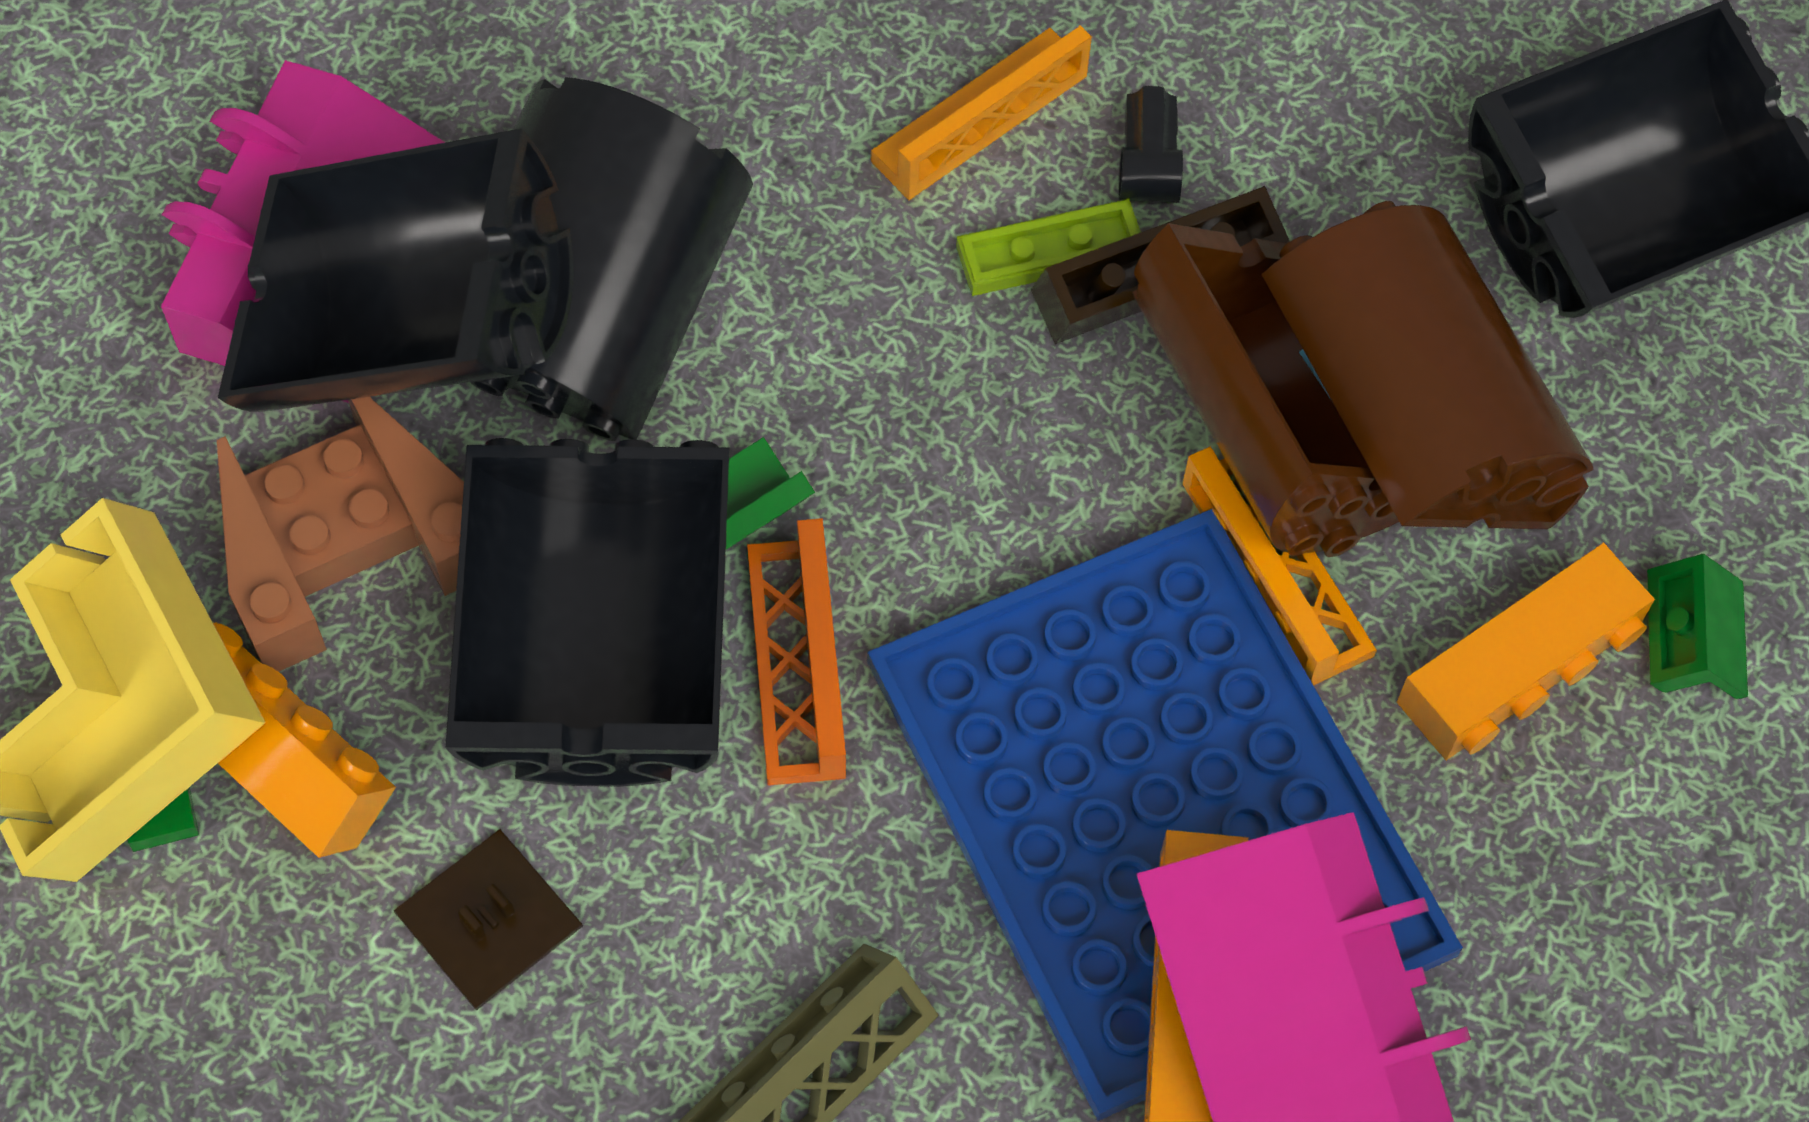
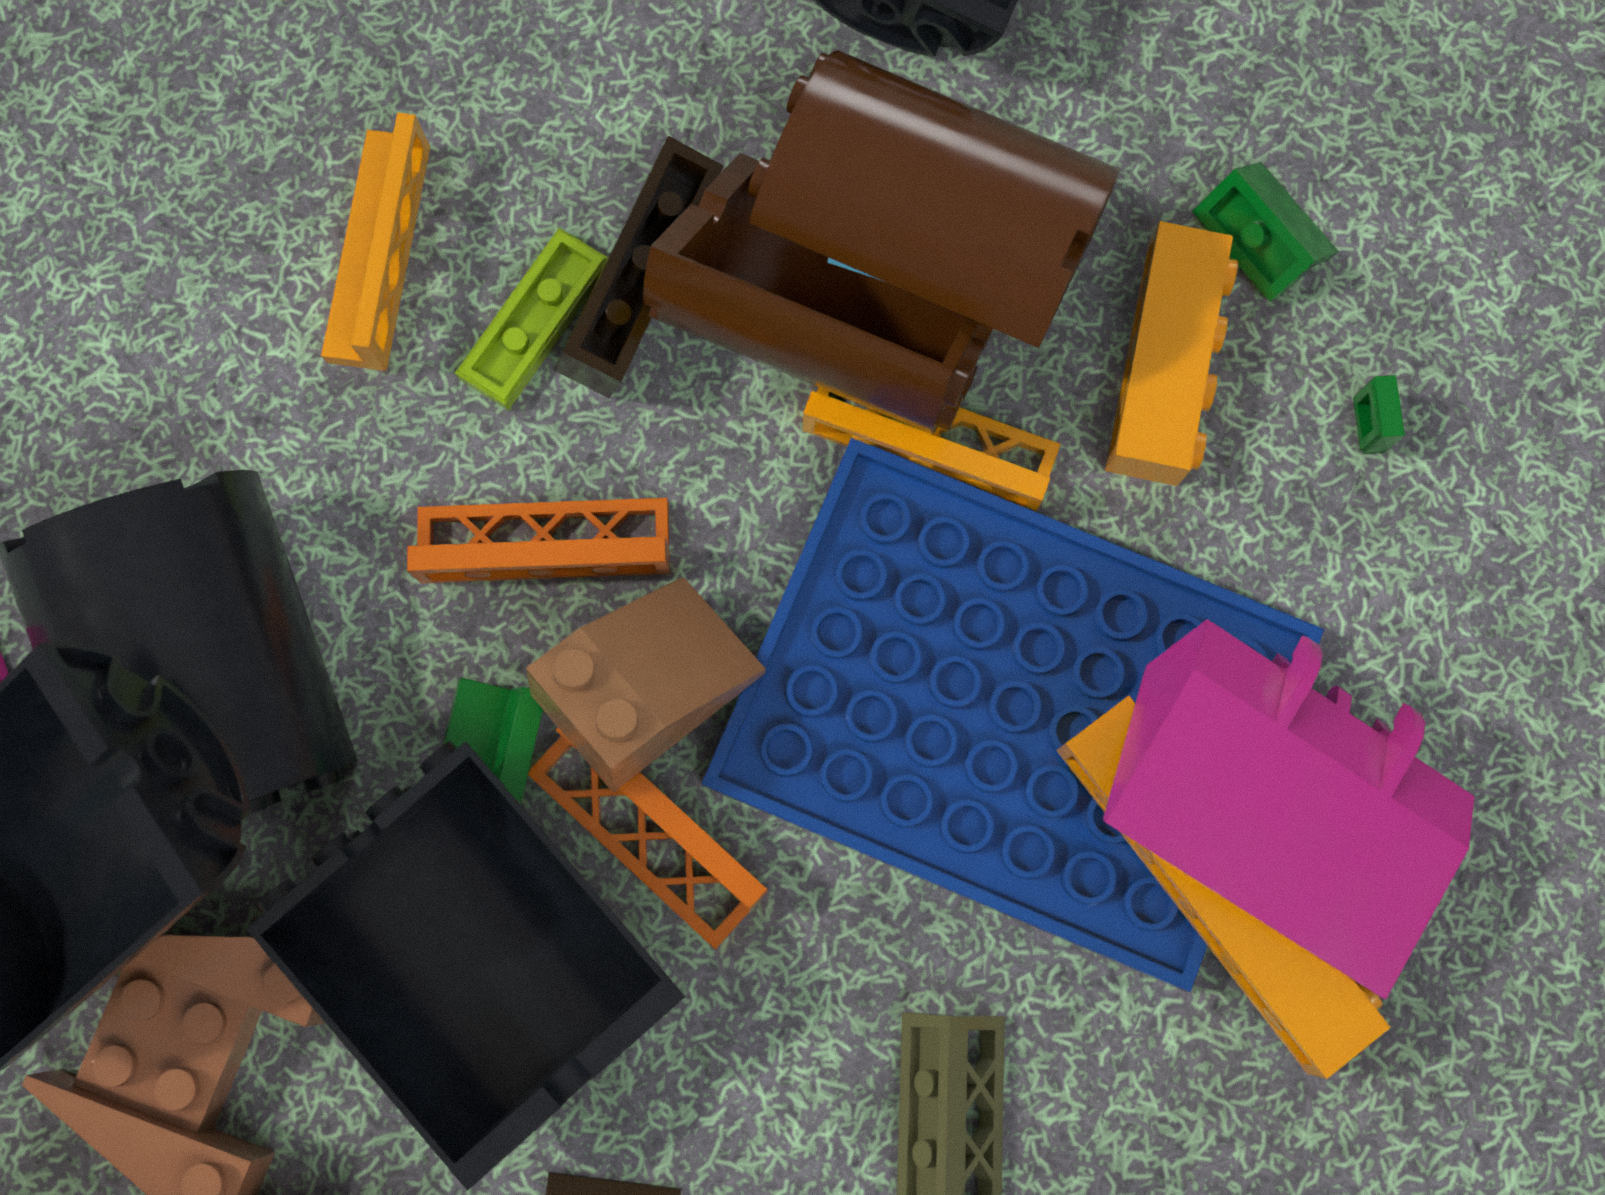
camera: 40 degrees left, 15 degrees up
(892, 533) = (641, 679): none -> medium nougat slope
(906, 410) = (542, 555): none -> orange fence
(1150, 160) = (547, 182): black piece -> none
(1660, 832) = (1378, 414): none -> green tile

